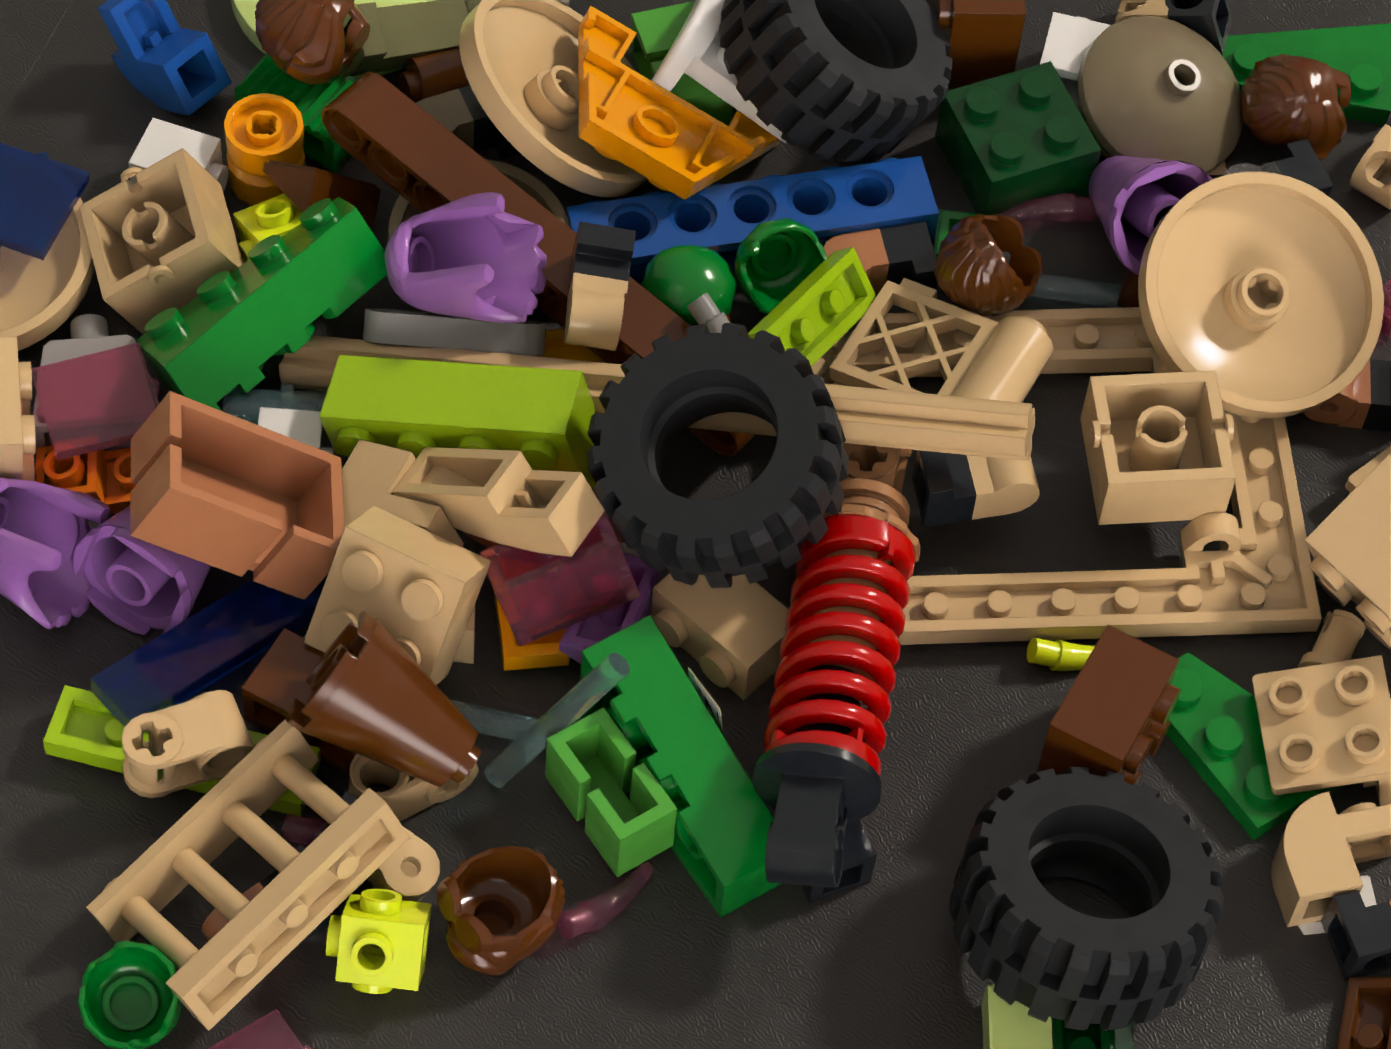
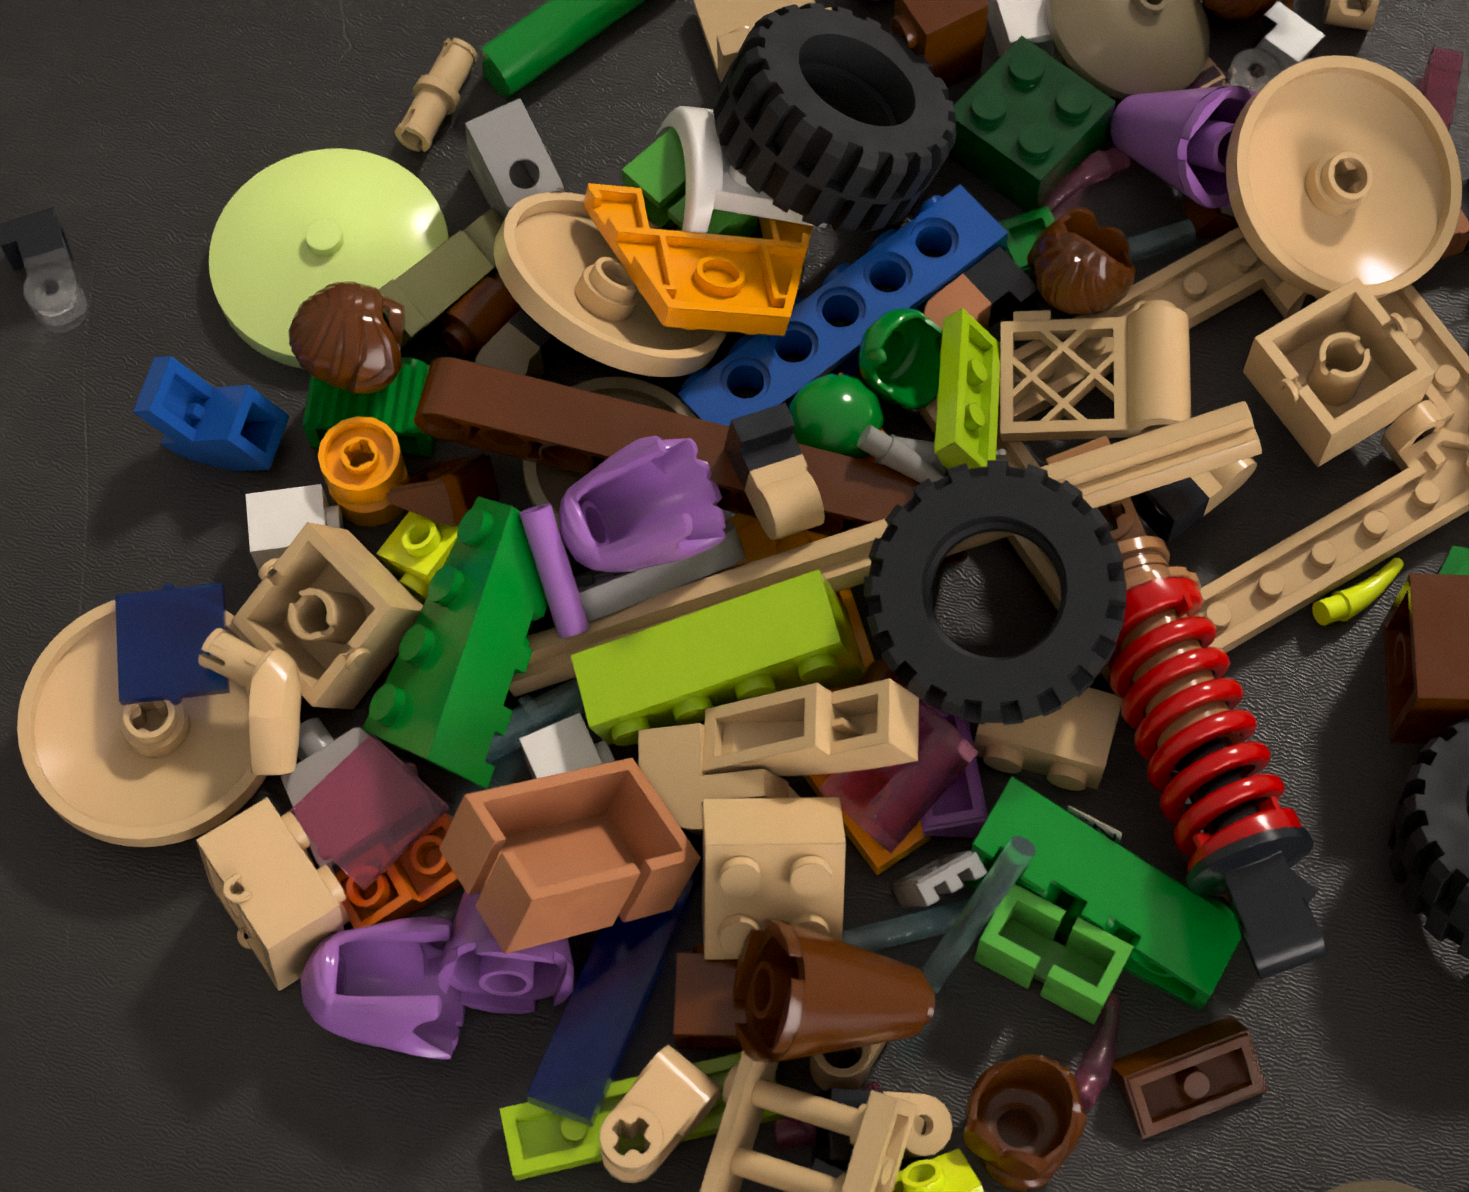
camera: 20 degrees left, 10 degrees up
(68, 273) = (273, 698): none -> tan arm
(365, 280) = (554, 570): none -> medium lavender piece
(546, 686) = (937, 877): none -> light grey tile
(674, 961) = (1189, 1076): none -> reddish brown slope

